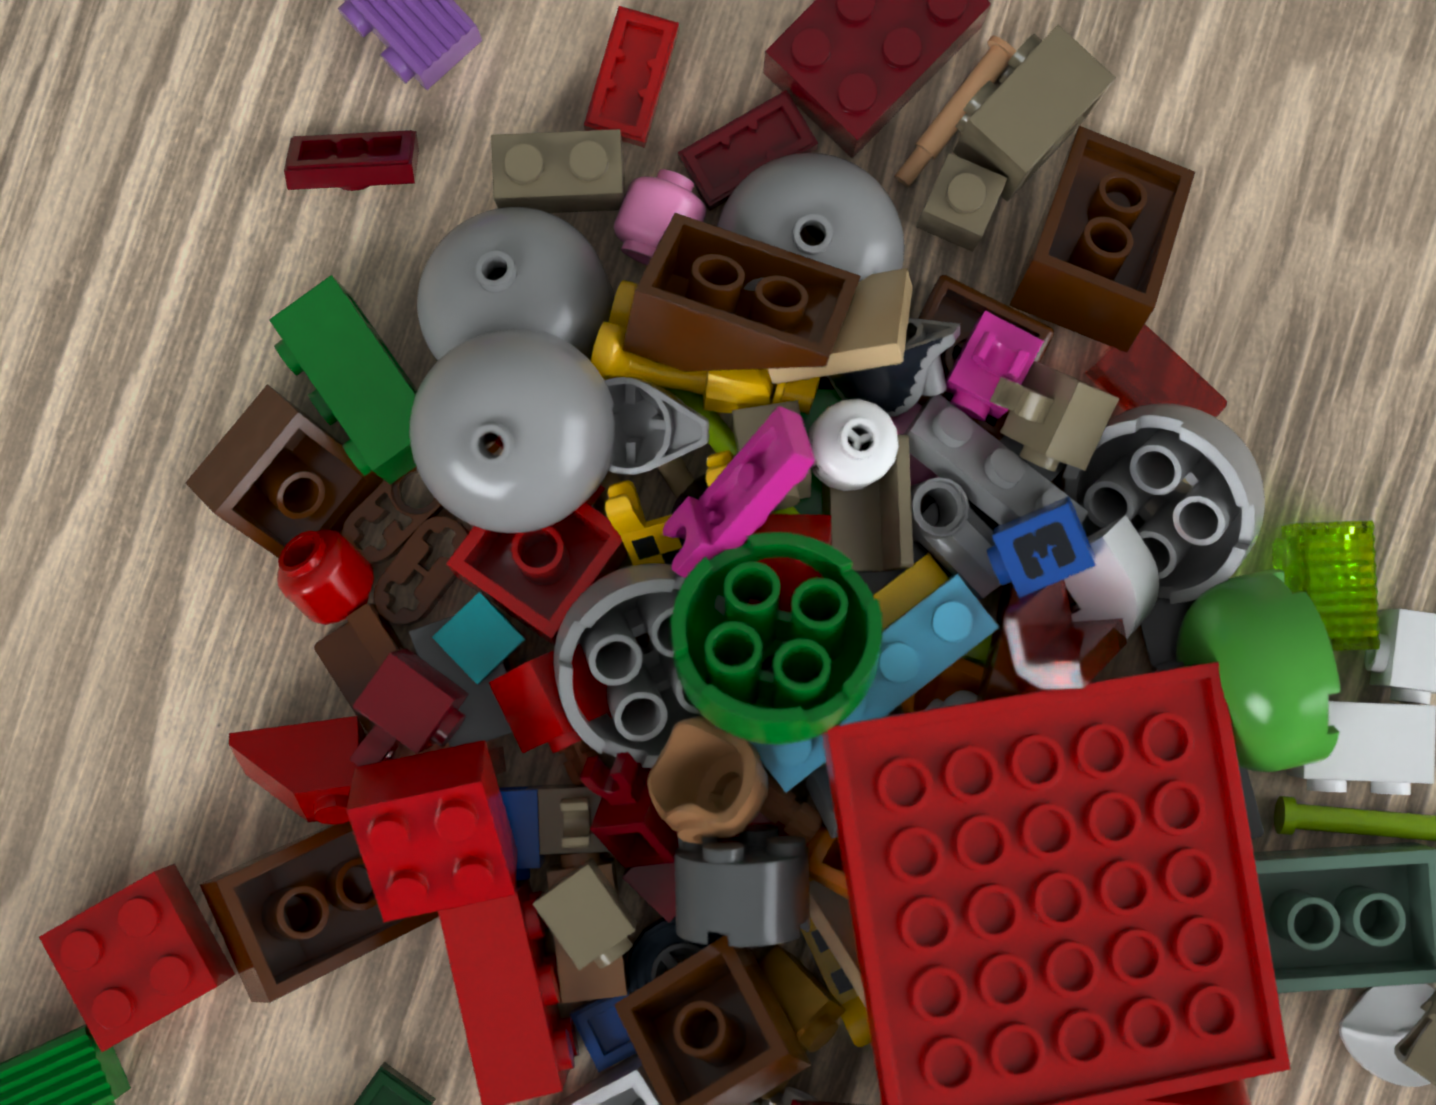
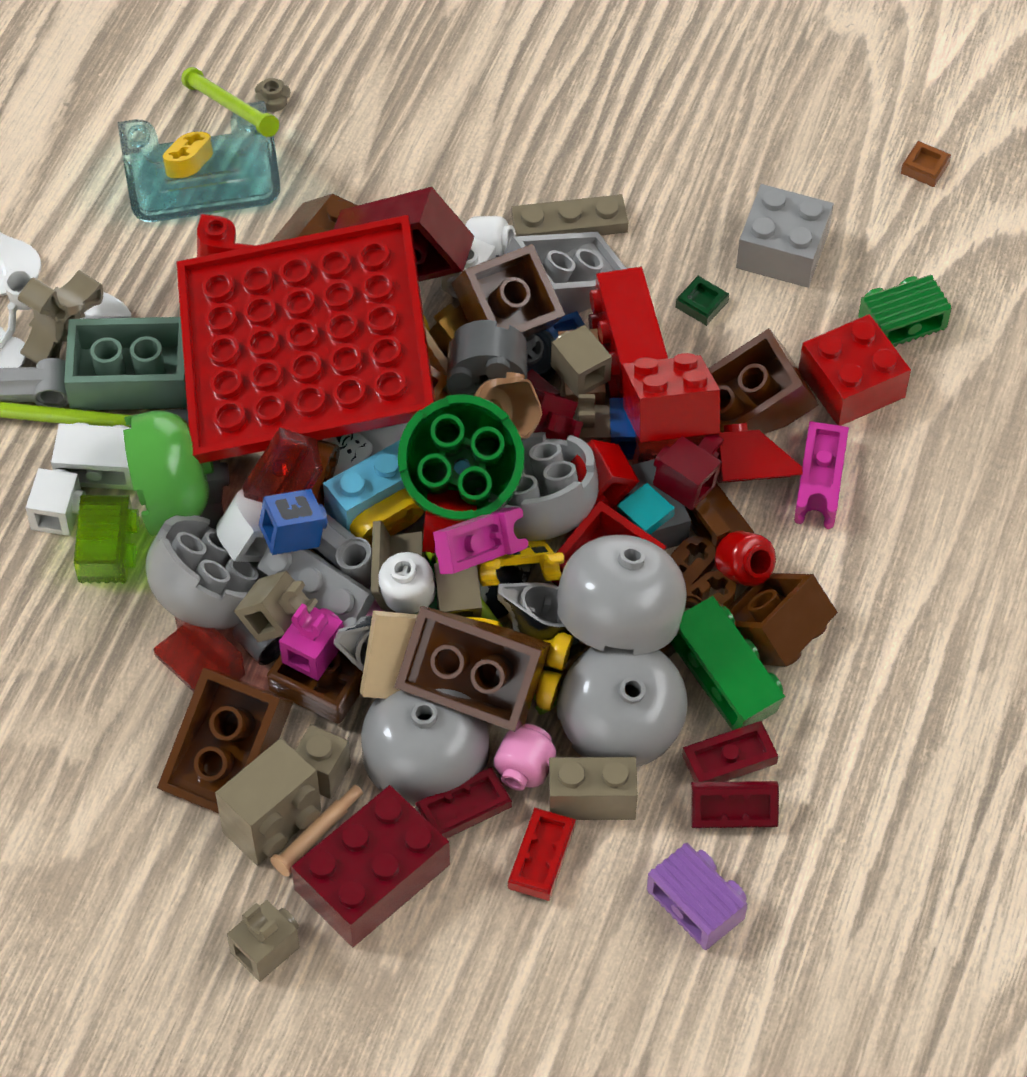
camera: 175 degrees left, 30 degrees down
(200, 760) = (821, 472): none -> dark pink plate
(359, 242) = (730, 754): none -> dark red plate

